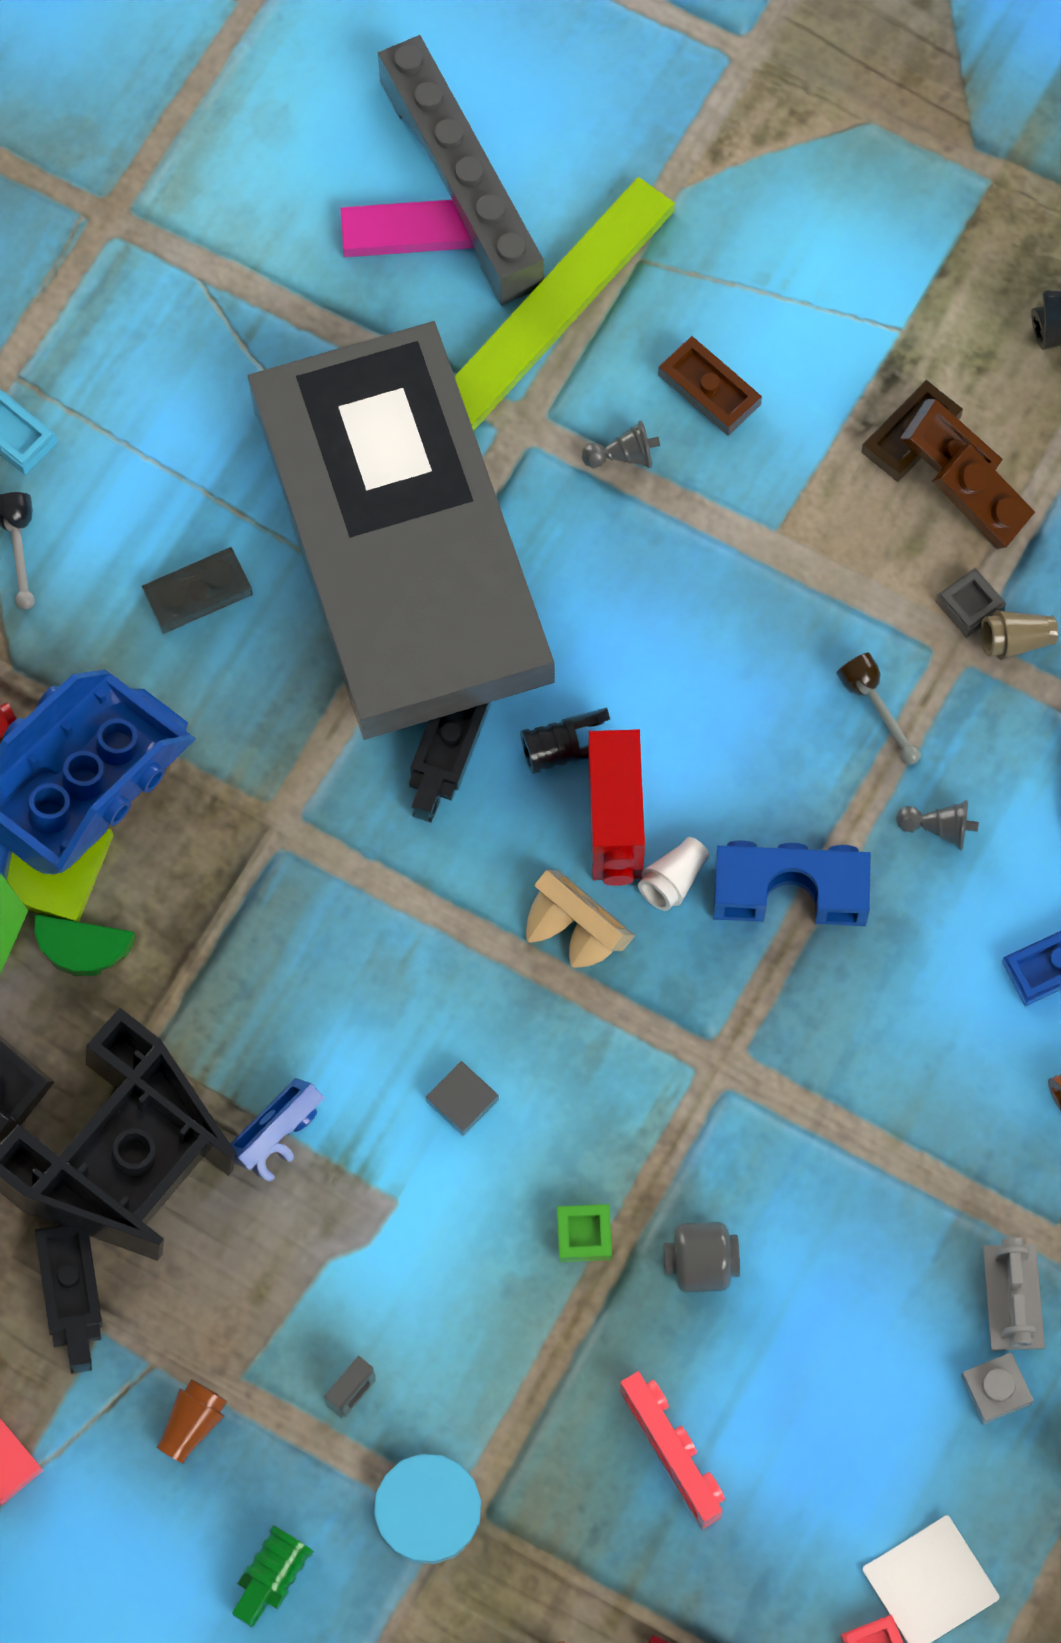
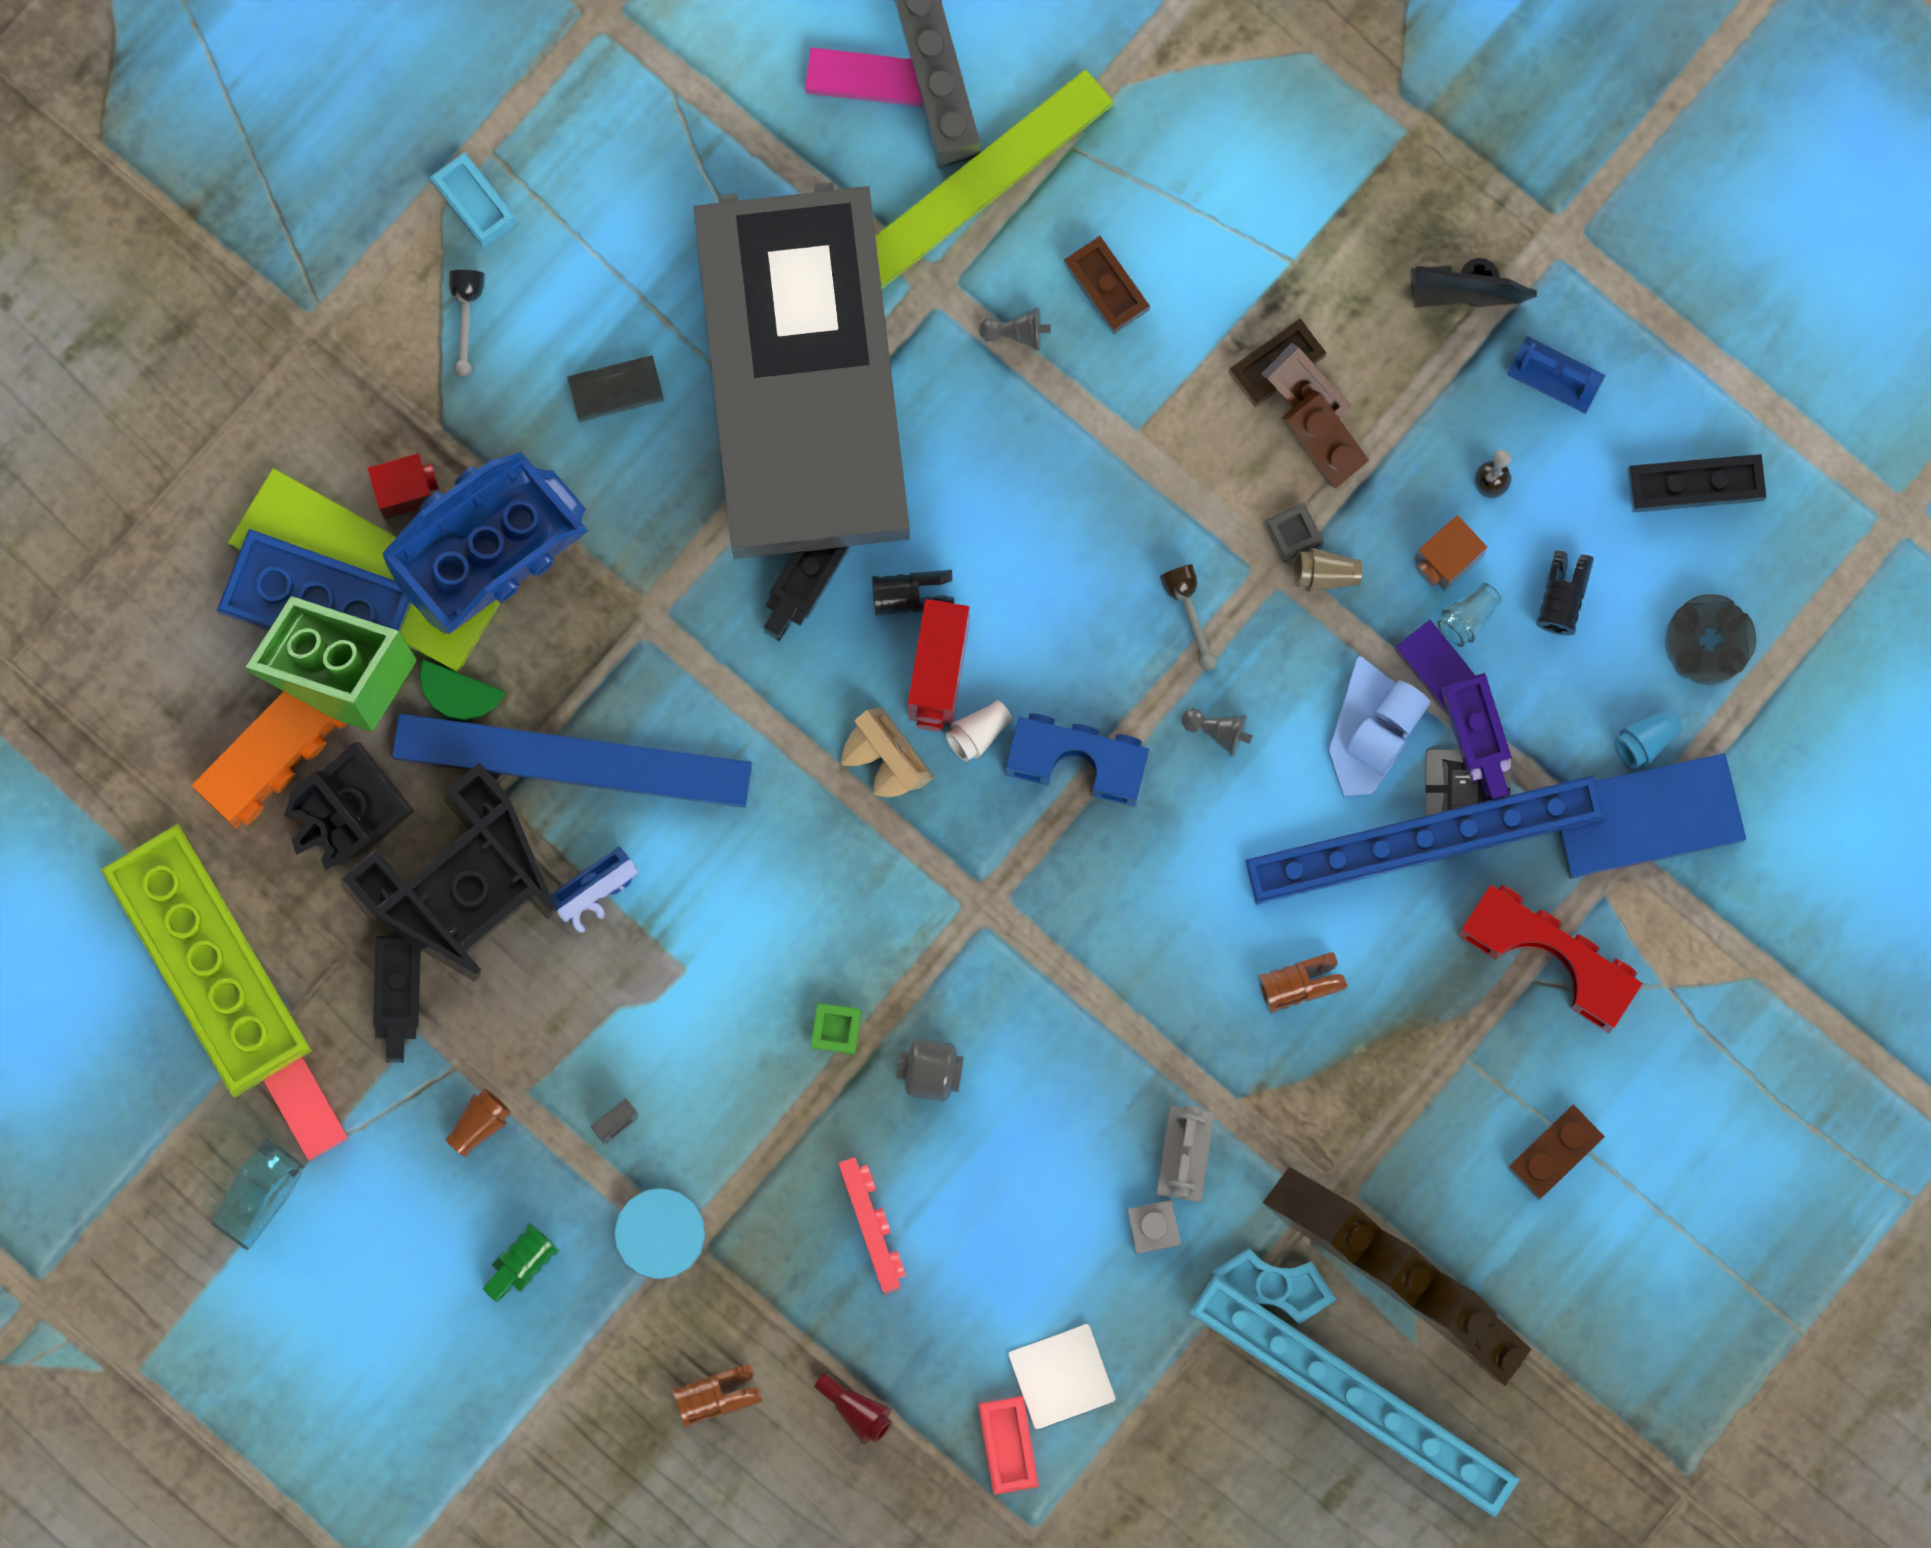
camera: 10 degrees right, 10 degrees up
(225, 993) = (572, 760): none -> blue tile
(462, 1098) = (757, 891): dark grey tile -> none

